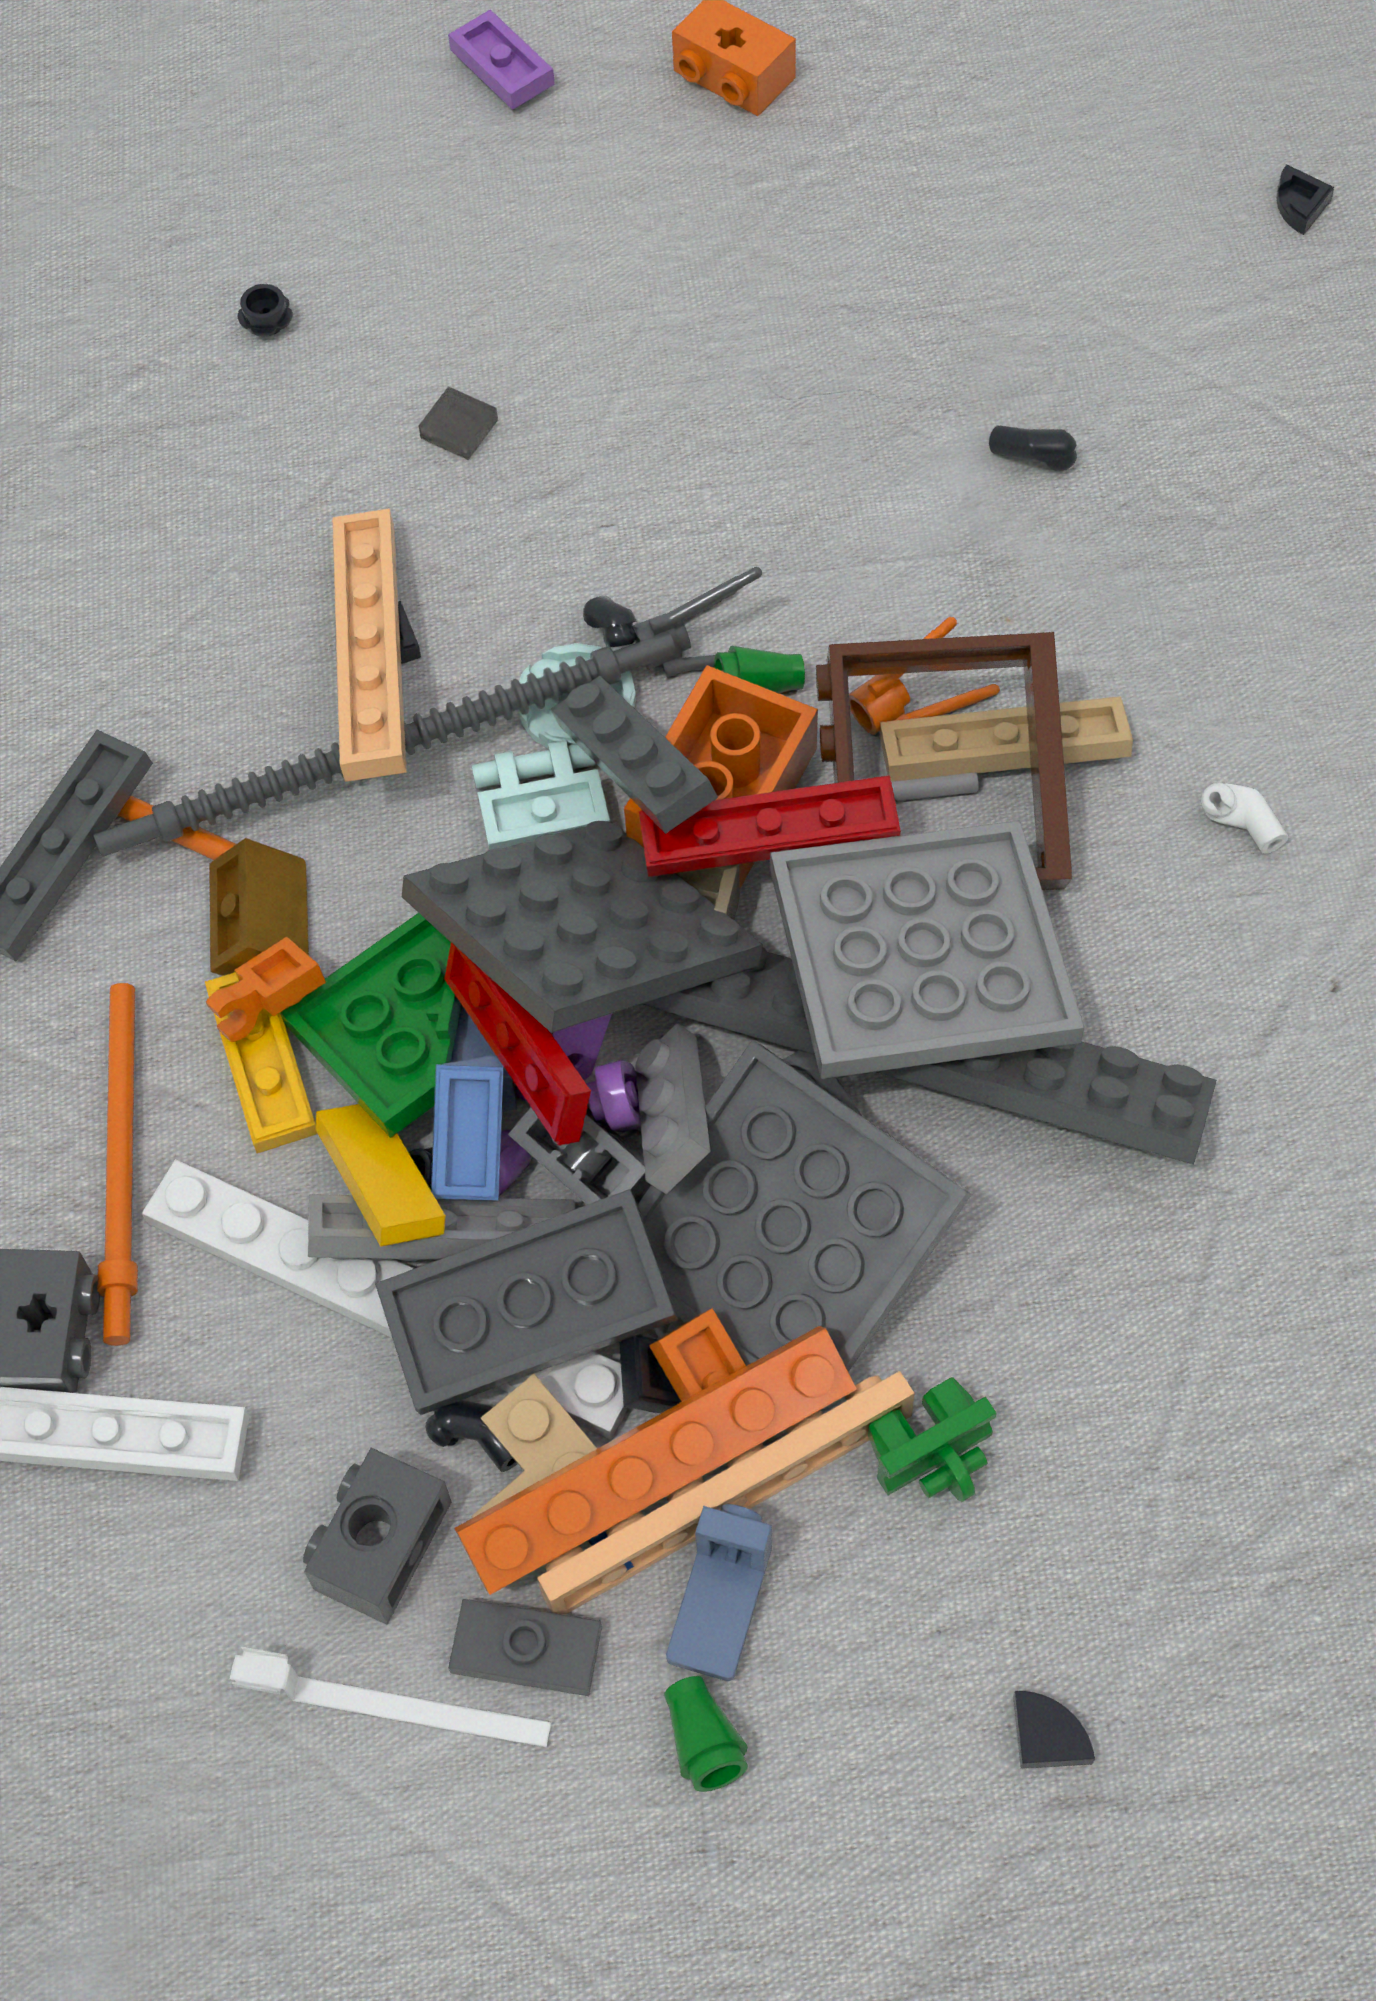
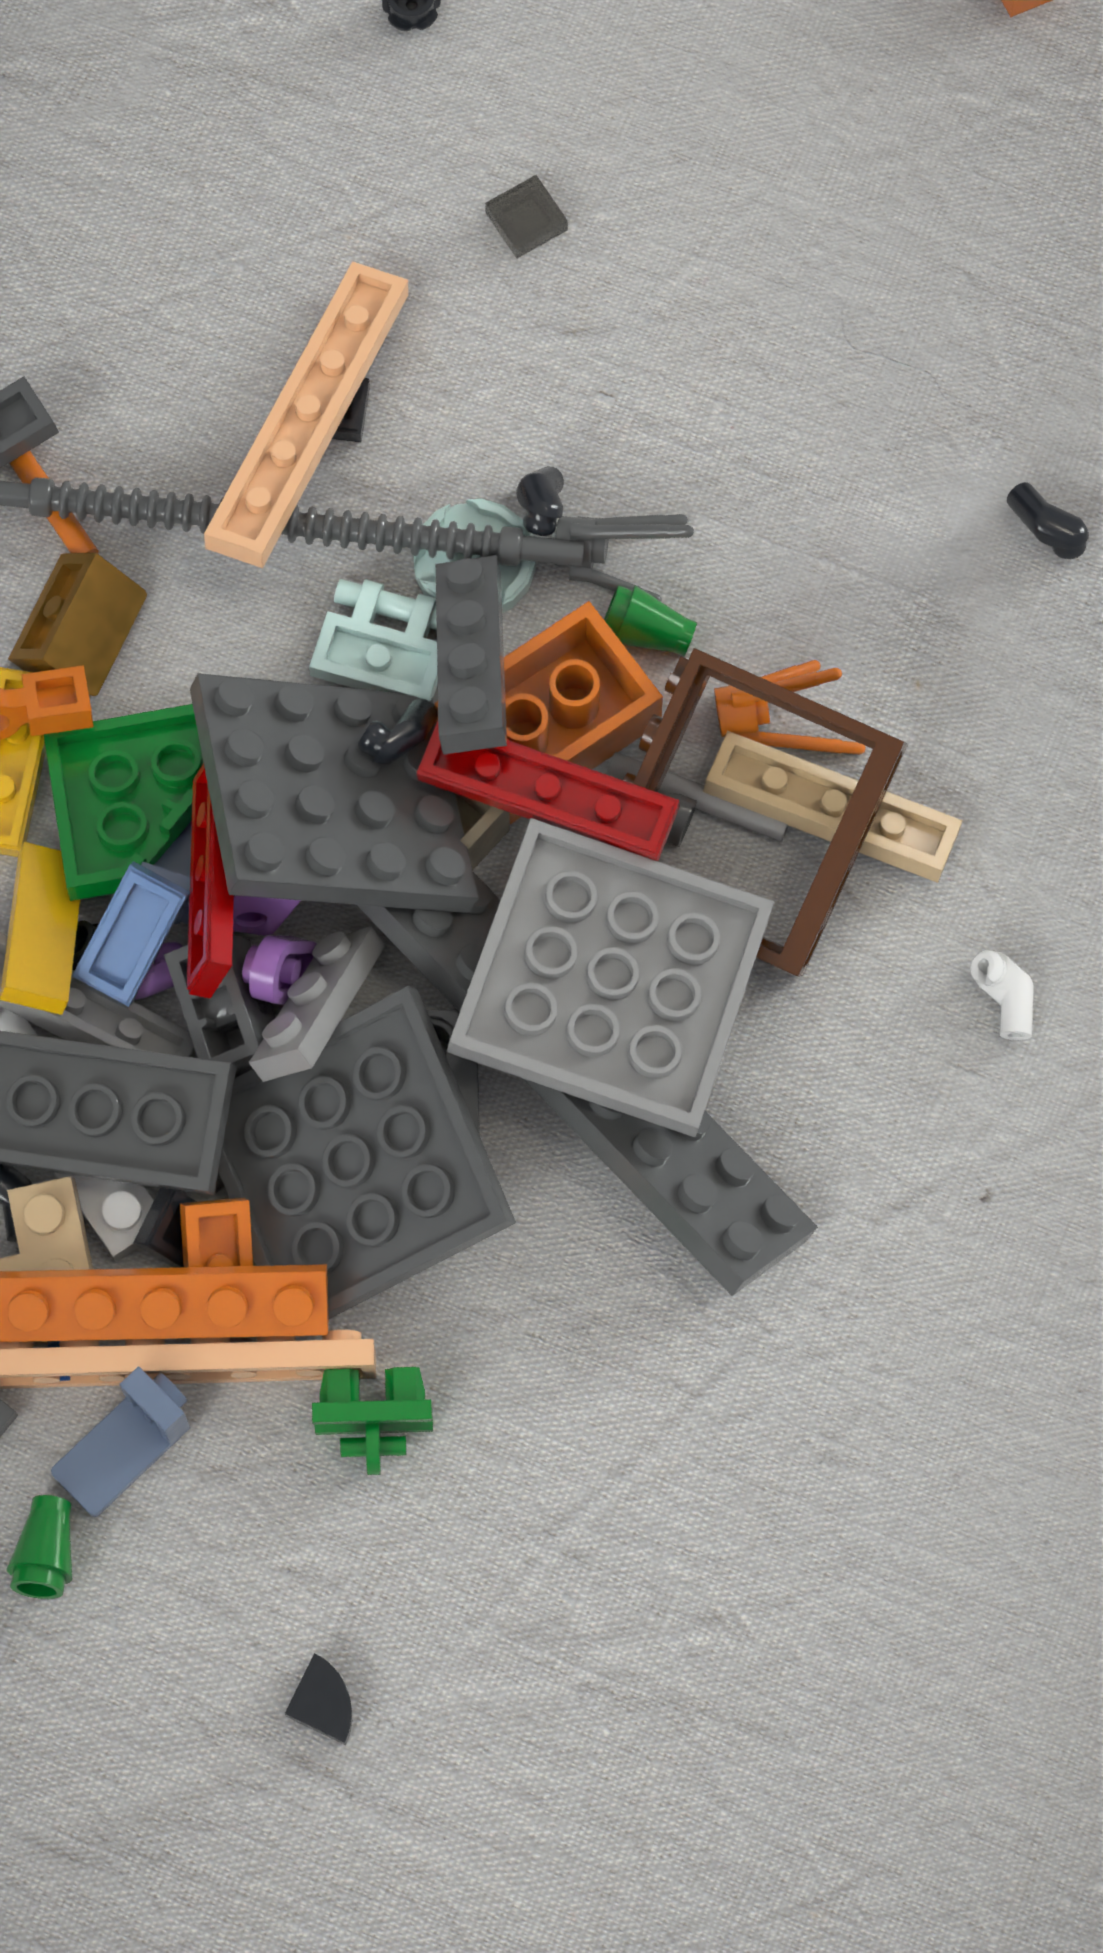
camera: 25 degrees right, 10 degrees up
(608, 855) = (409, 731): none -> black arm

